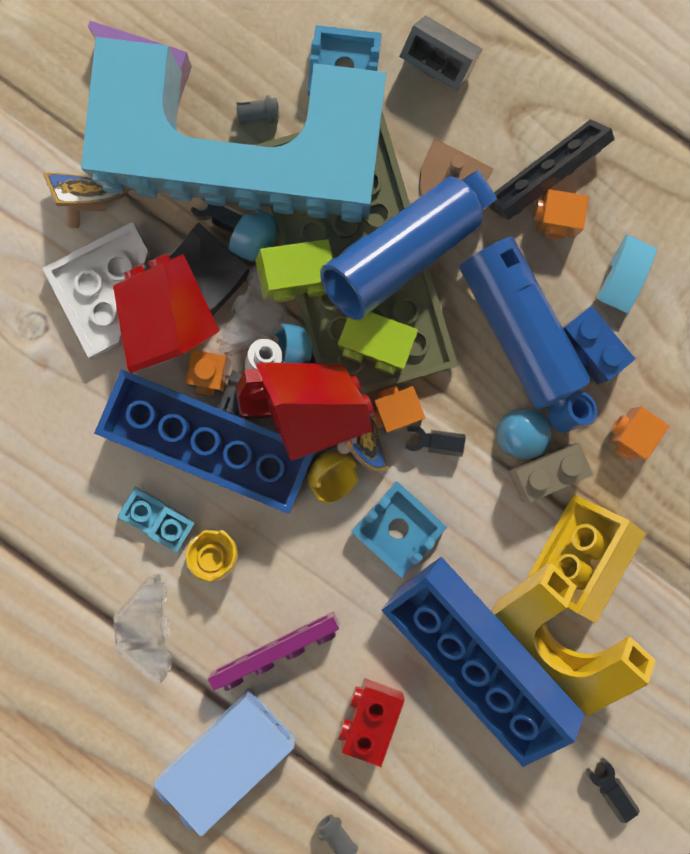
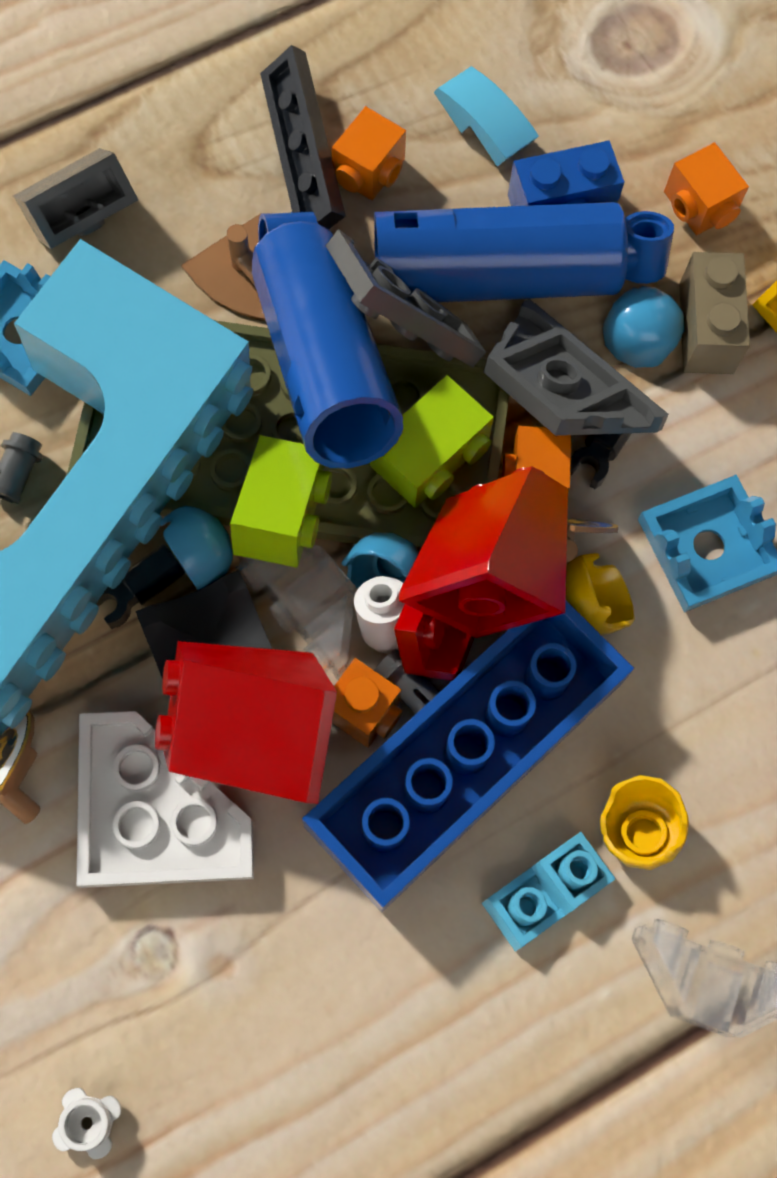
camera: 65 degrees left, 15 degrees down
(447, 276) = (414, 315): none -> dark grey wing
(456, 400) = (566, 381): none -> dark grey wing

